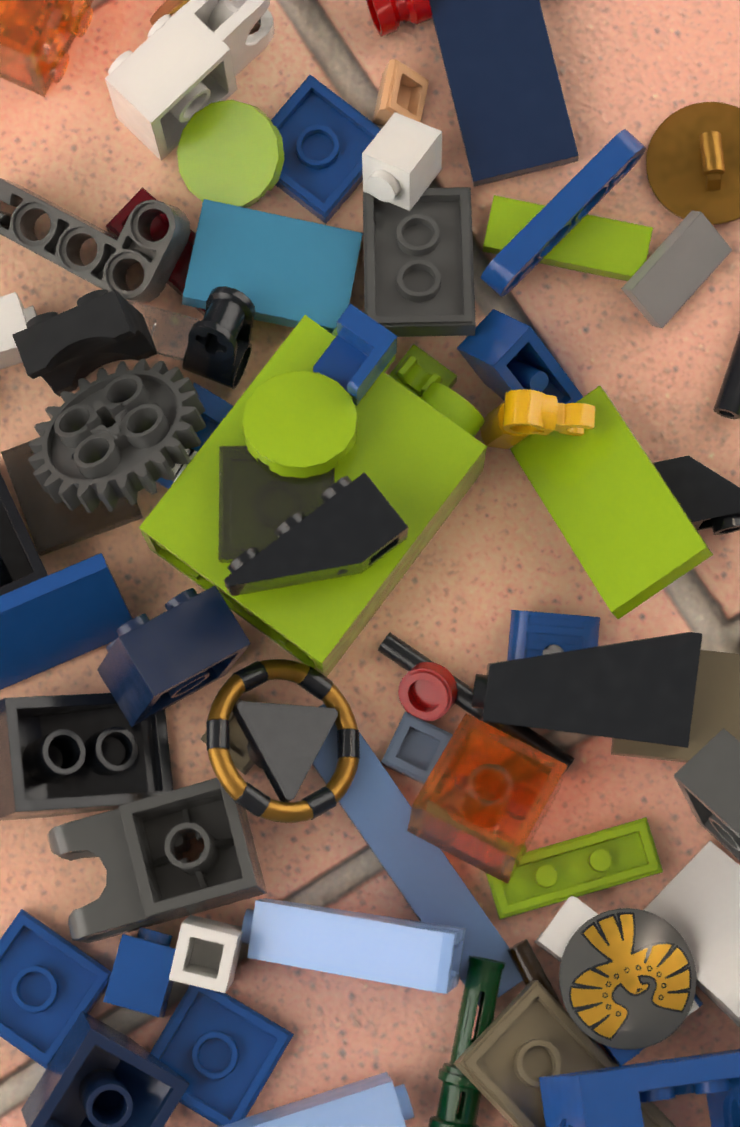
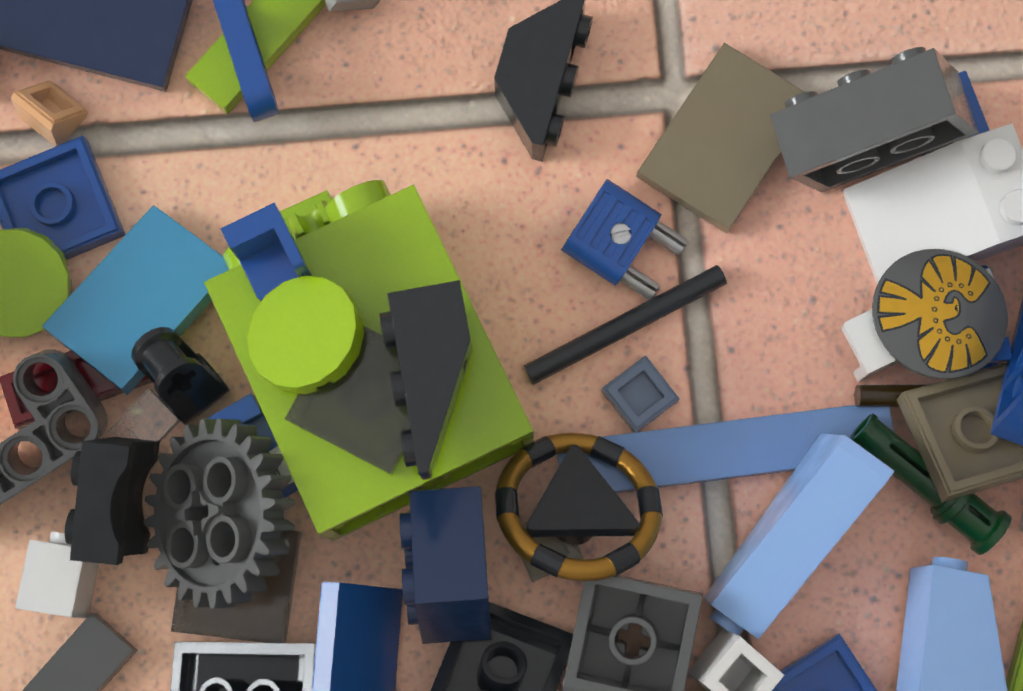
camera: 60 degrees left, 0 degrees up
(402, 161) = (109, 134): white brick -> none
(420, 264) = (205, 165): dark grey tile -> none
(428, 691) = (594, 358): red tile -> none
(486, 798) = (721, 352): clear orange brick -> none
(513, 357) = (352, 132): blue slope -> none
(533, 413) = (402, 136): yellow bar -> none
(577, 868) = (811, 316): lime tile -> none
(610, 690) = (679, 200): black slope -> none
(612, 507) = (516, 111): lime tile -> none

